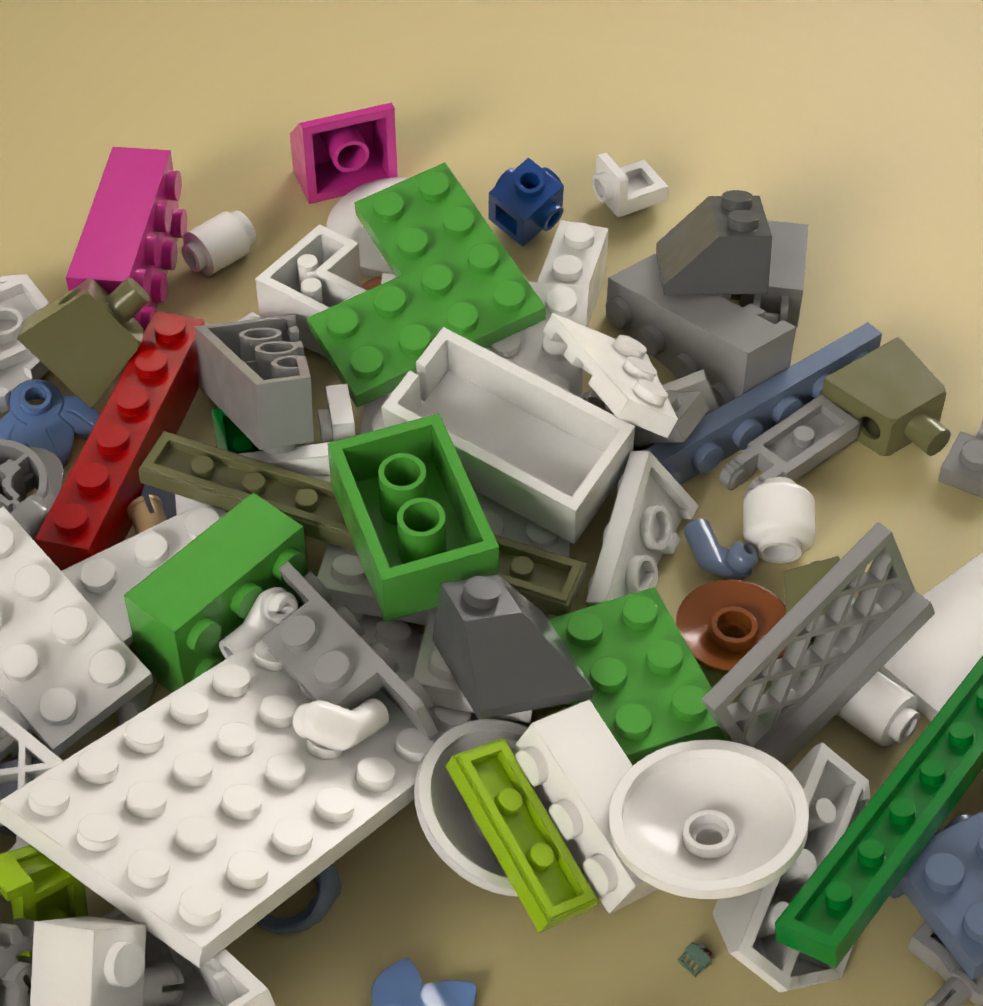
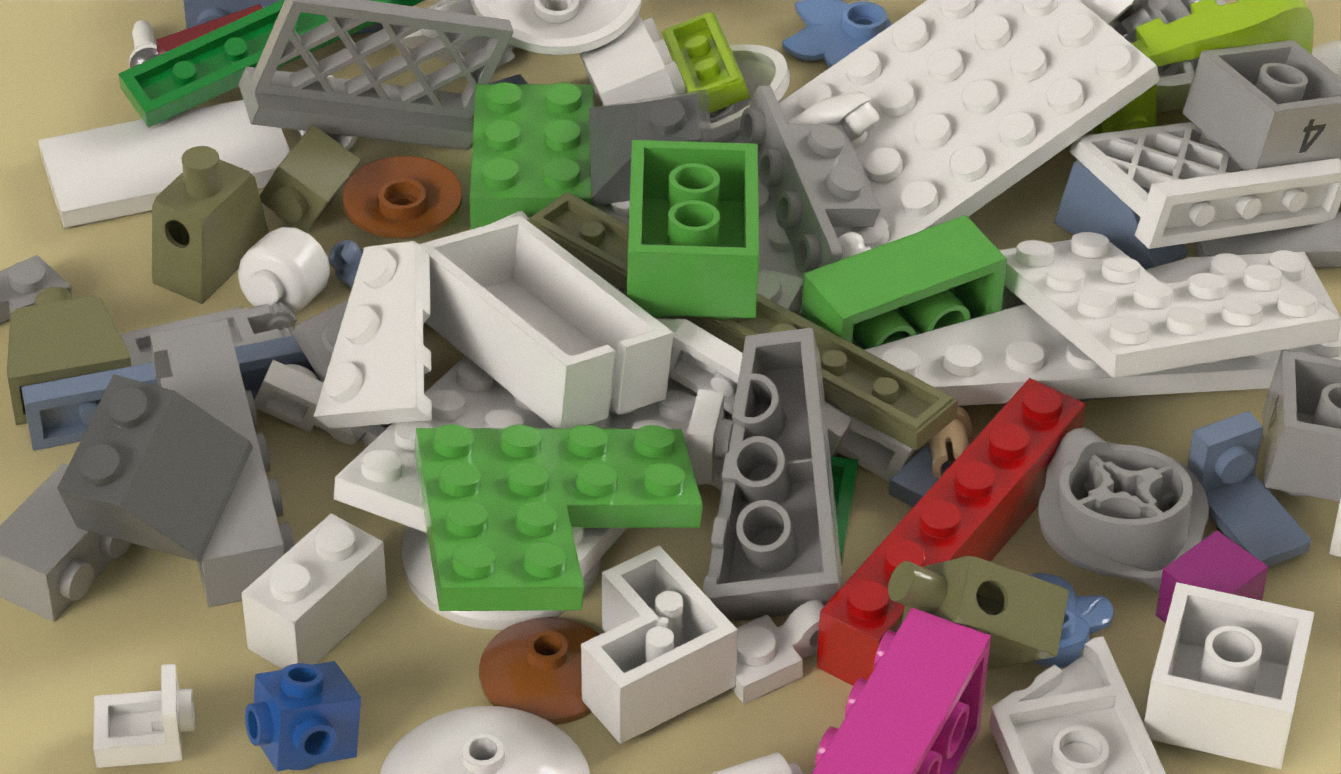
camera: 160 degrees left, 5 degrees down
(870, 496) = (204, 225): none -> olive torso

